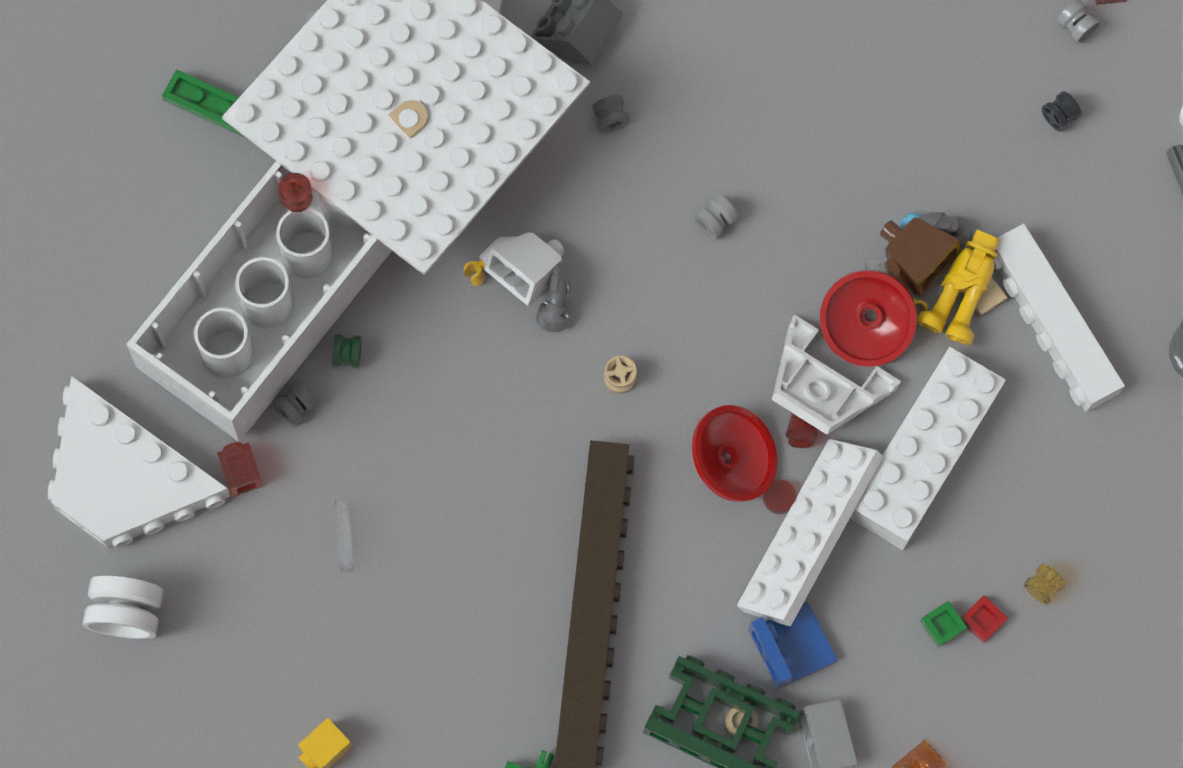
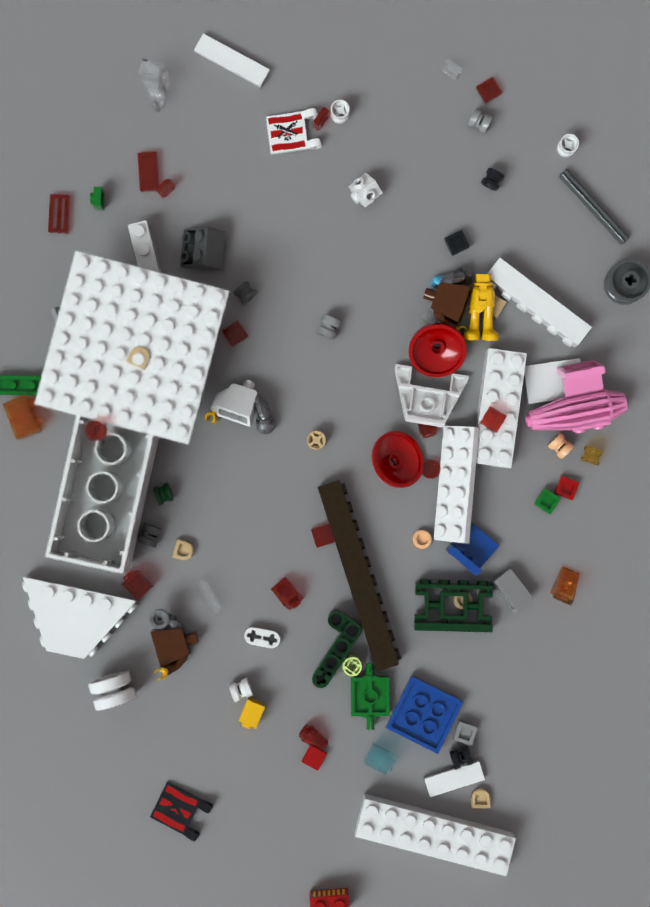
camera: 20 degrees left, 15 degrees up
(188, 148) = (22, 417): none -> clear orange brick
(250, 579) = (170, 642): none -> reddish brown torso
(331, 702) = (245, 689): none -> white wheel
(336, 451) = (183, 550): none -> tan tile
(391, 644) = (260, 641): none -> white beam
(468, 587) = (287, 594): none -> clear red bracket
(498, 707) = (333, 651): none -> dark green beam
(517, 748) = (352, 665): none -> yellowish green wheel
(564, 523) = (322, 535): none -> clear red tile
(567, 167) = (235, 333): none -> clear red tile
(718, 598) = (422, 539): none -> light nougat tile
(859, 44) = (364, 190): none -> white brick
(910, 451) = (493, 419): none -> clear red tile
(967, 179) = (456, 243): none -> black plate
(1001, 547) = (557, 442): none -> light nougat wheel
(1031, 447) = (543, 381): none -> white tile
(1063, 496) = (584, 403): none -> bright pink piece

